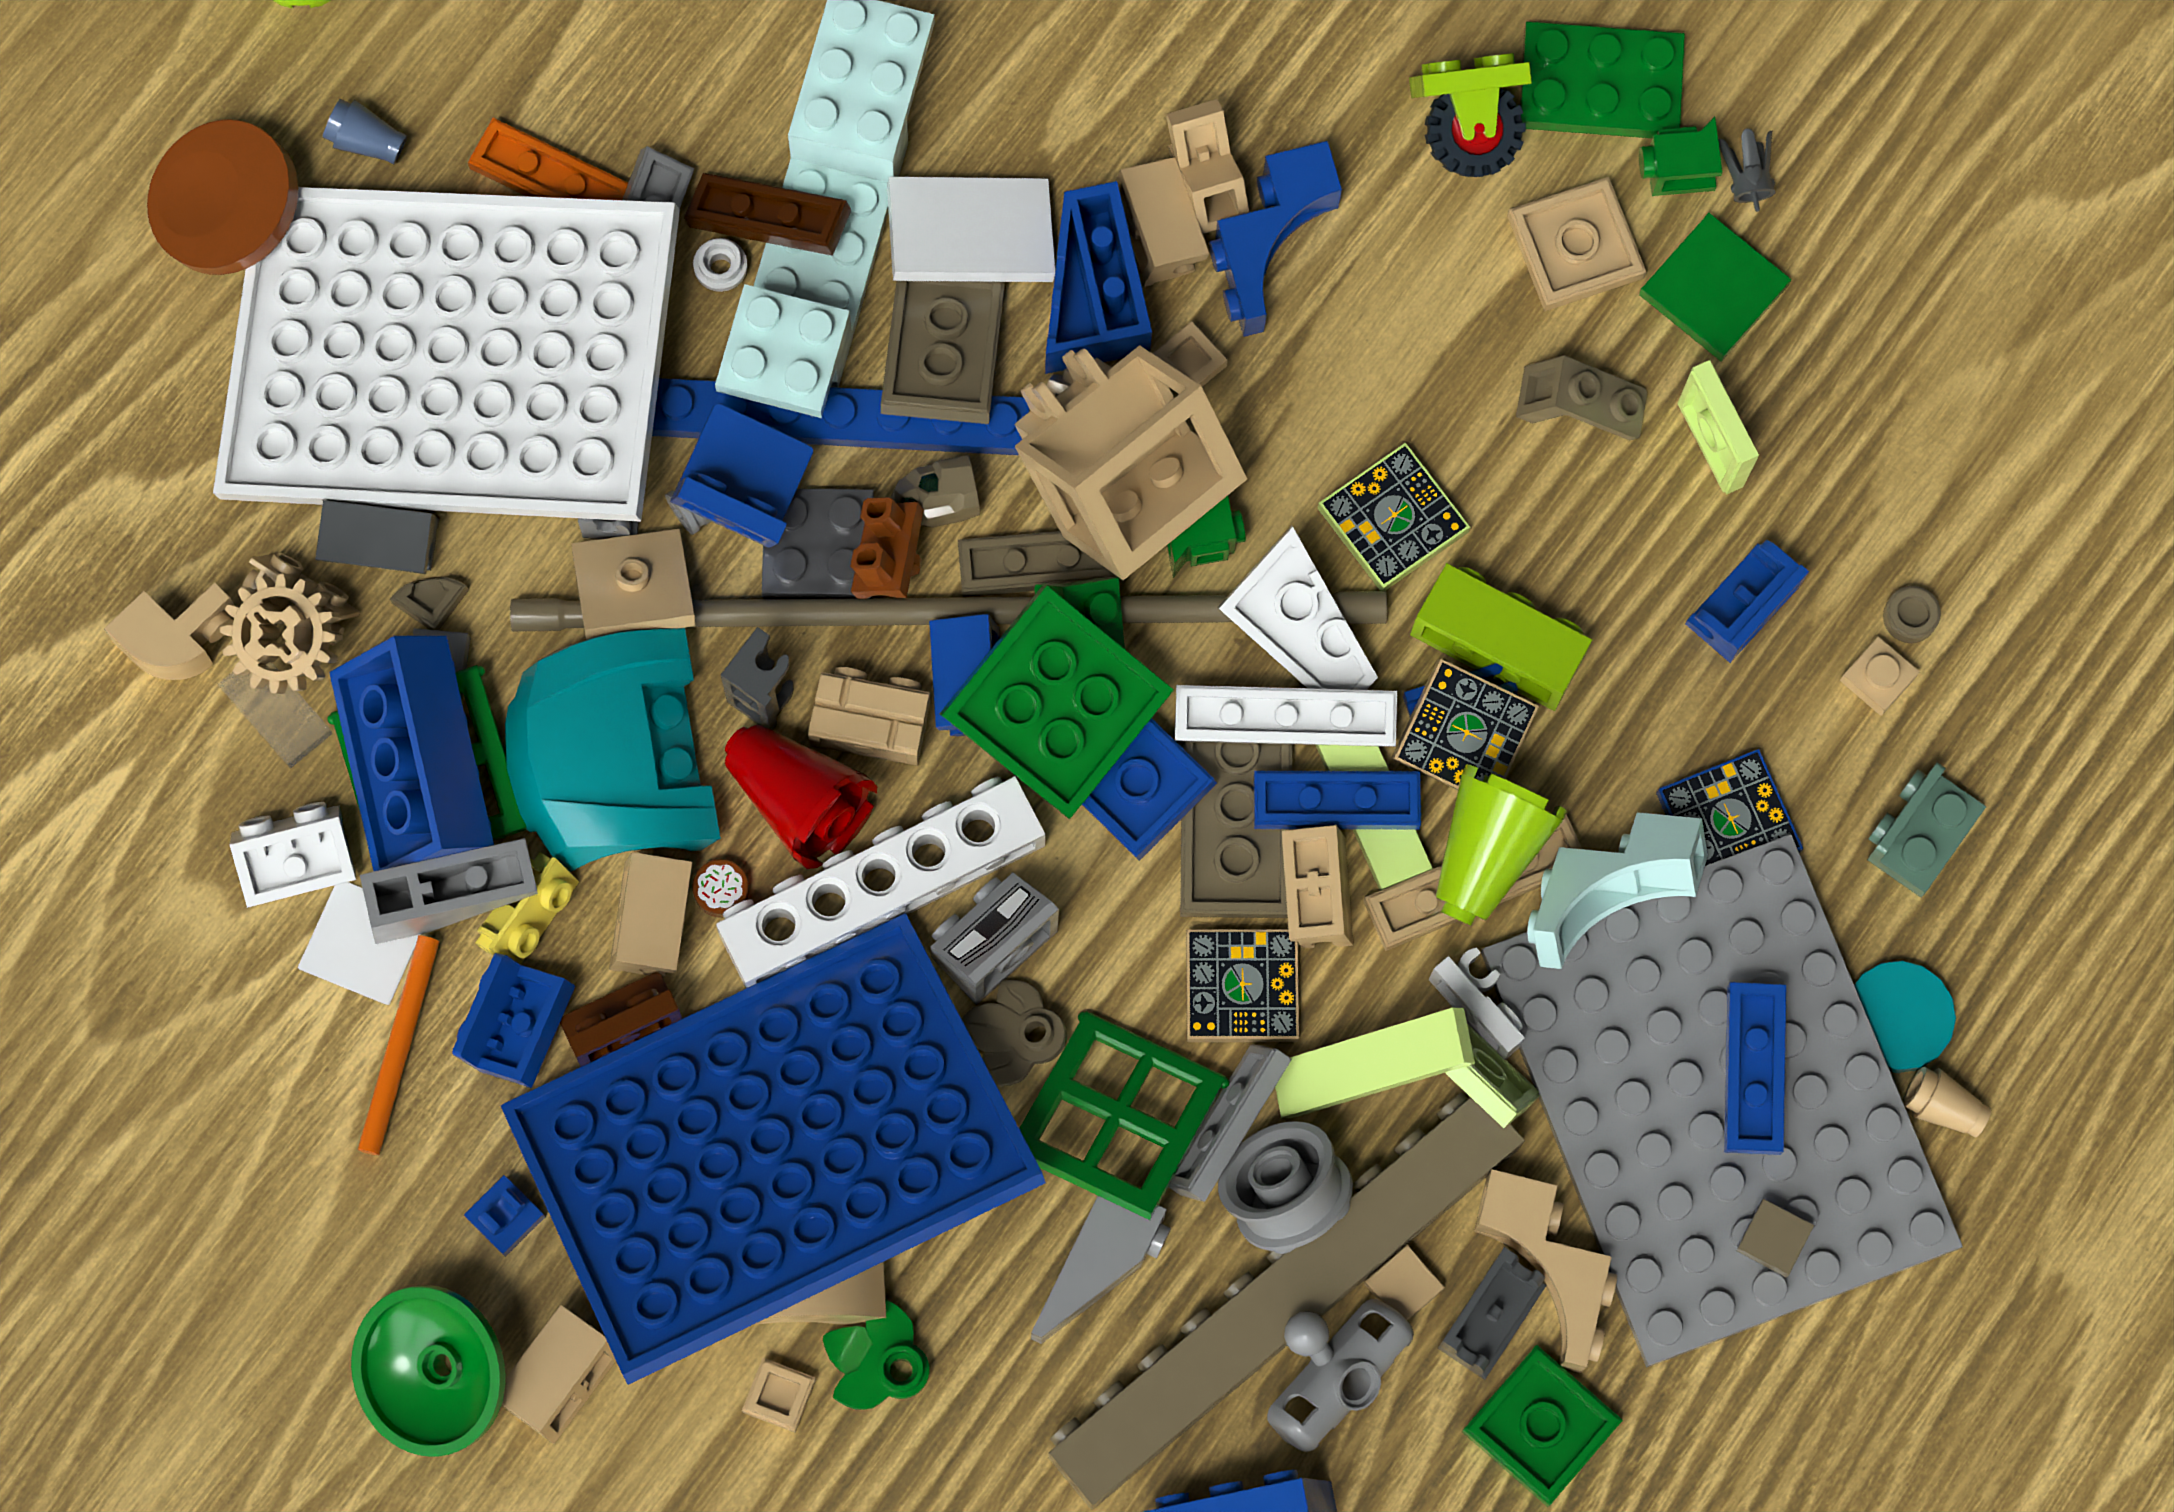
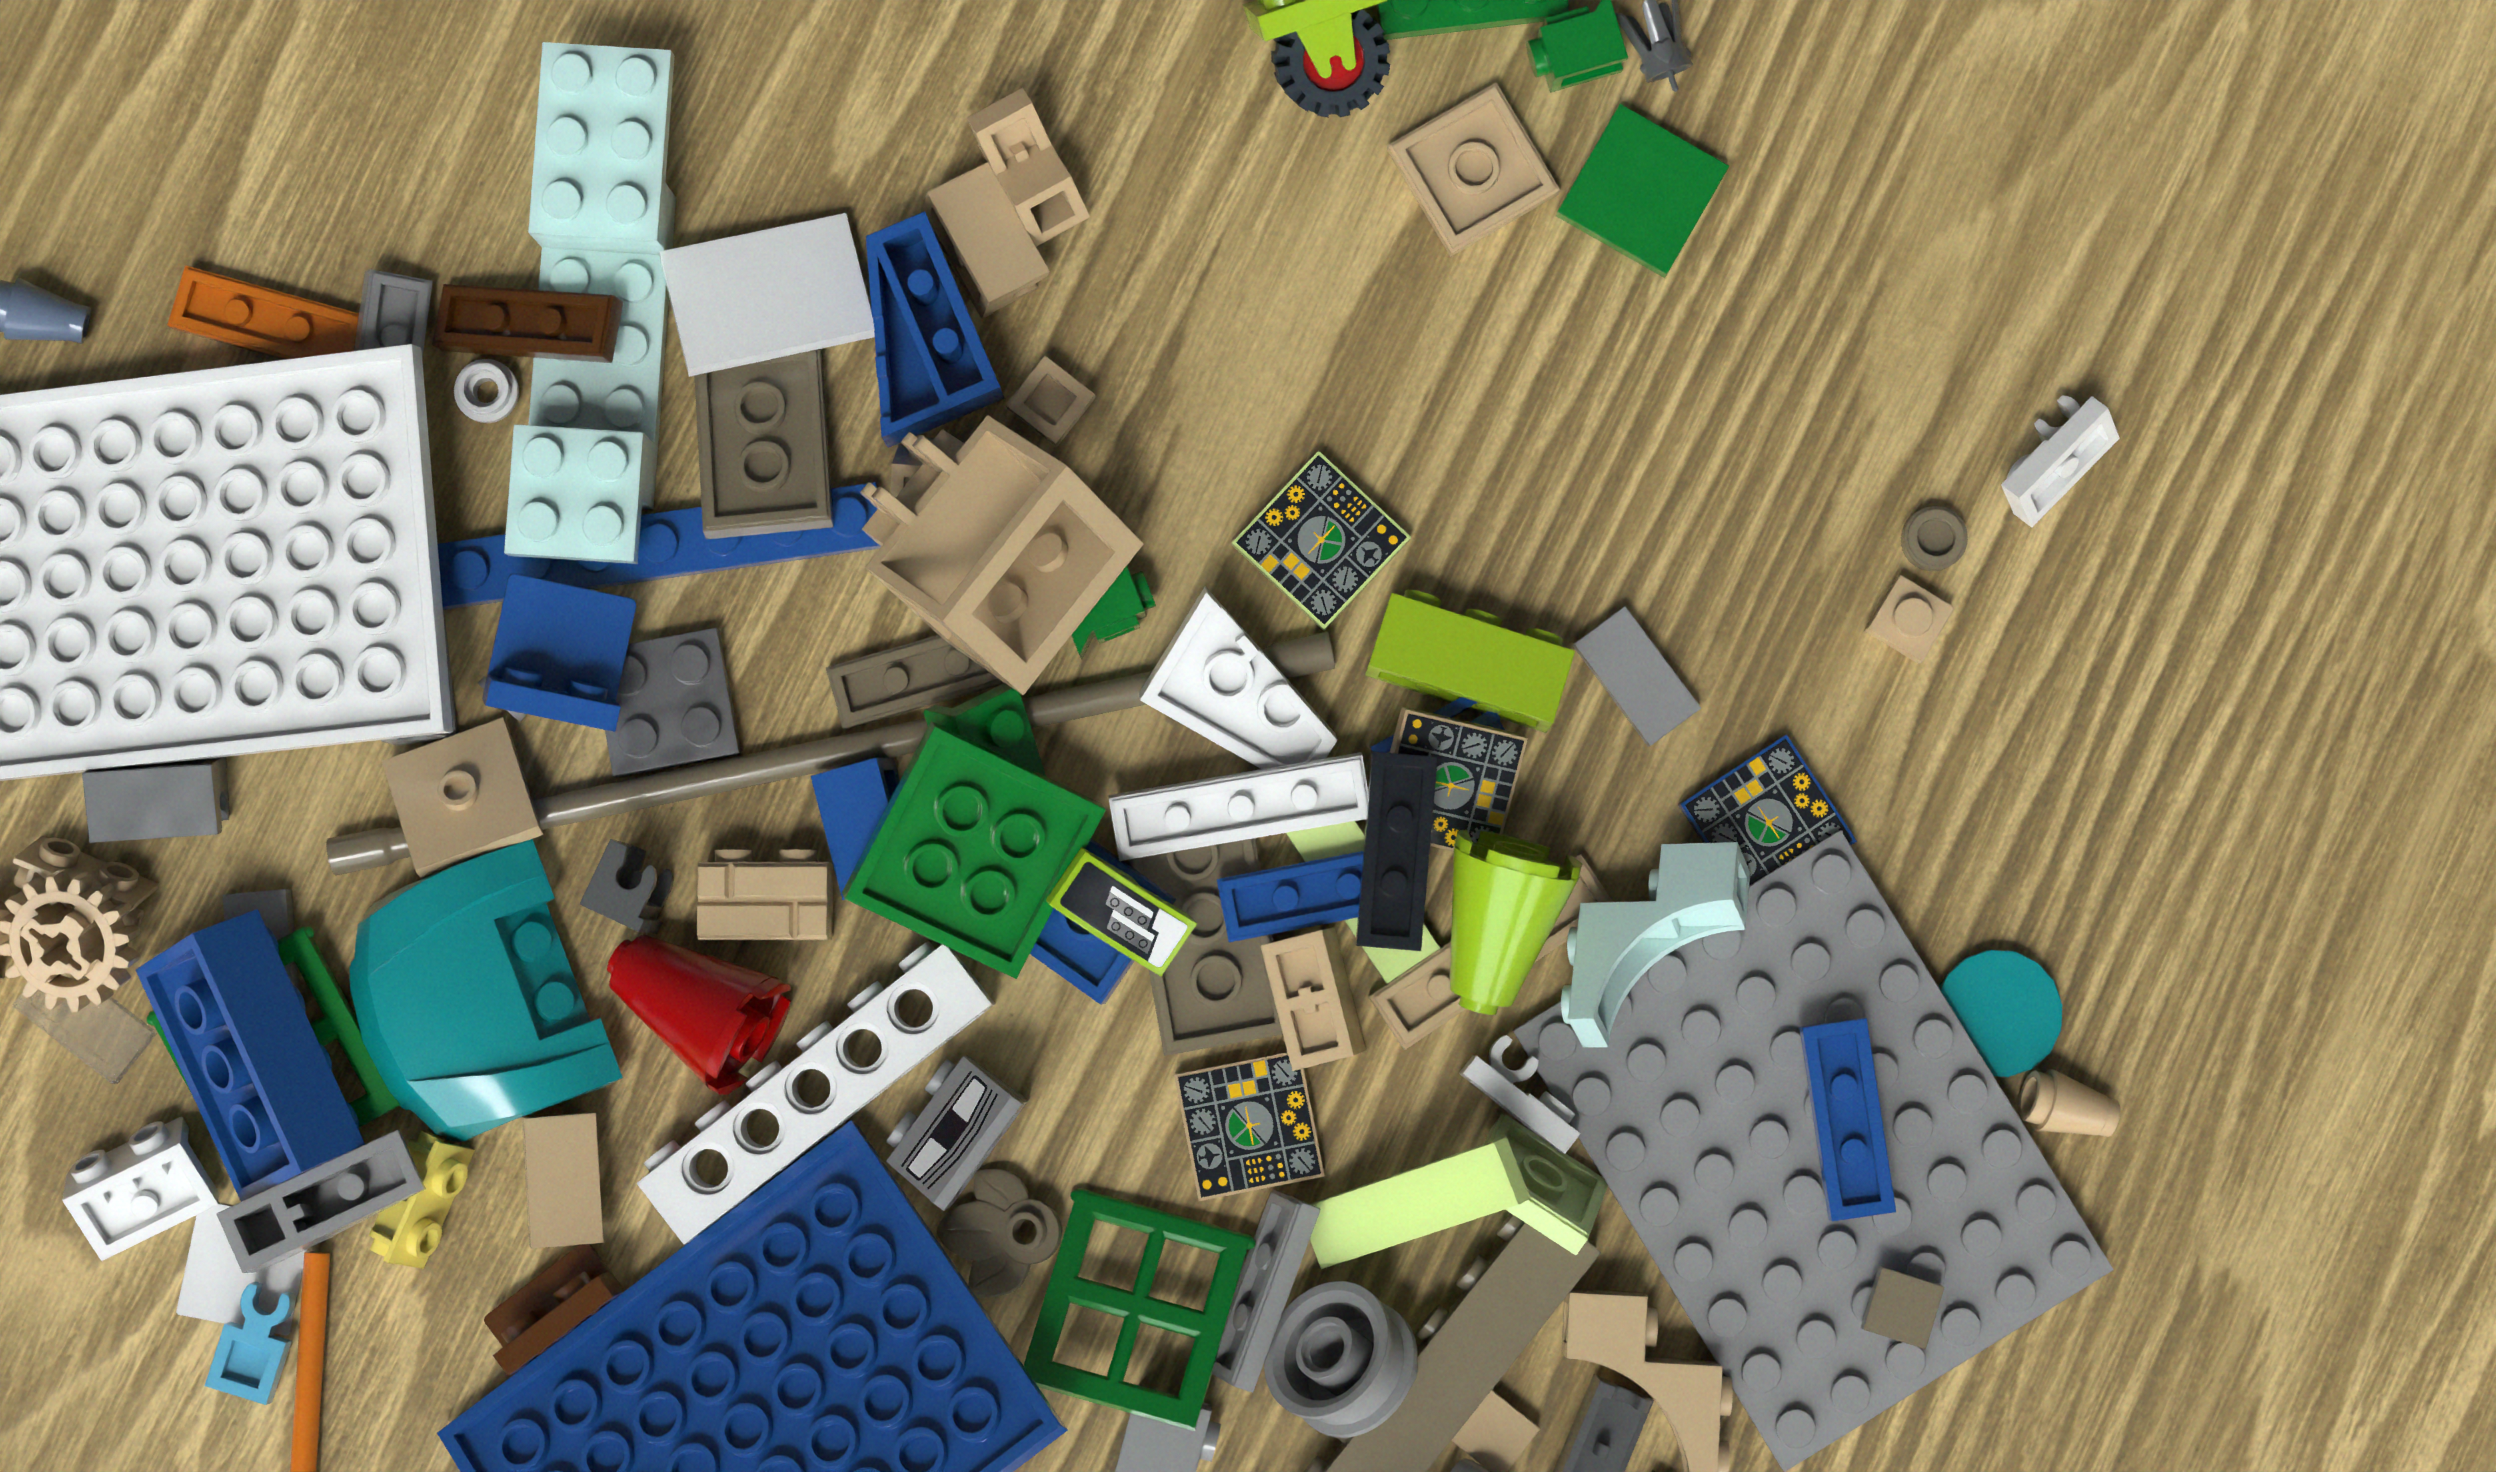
camera: 10 degrees left, 10 degrees up
(355, 1011) = (251, 1355): none -> medium azure plate
(430, 600) = (235, 857): dark tan tile -> none
(512, 1021) = (430, 1333): blue bracket -> none
(719, 887) = (636, 1129): tile -> none
(887, 548) = (744, 702): dark orange hips -> none
(943, 491) = (790, 618): dark tan rock -> none
(1170, 778) = (1121, 912): none -> slope
(1298, 188) = (1137, 168): blue arch -> none
(1411, 771) = (1396, 851): none -> black plate
(1582, 392) = (1512, 356): dark tan bracket -> none
(1640, 678) = (1636, 676): none -> light grey tile
(1717, 428) = (1675, 368): yellowish green tile -> none
(1747, 599) = (1743, 560): blue hinge -> none
(1925, 831) = (1991, 791): sand green bracket -> none
(2029, 566) = (2061, 459): none -> white plate

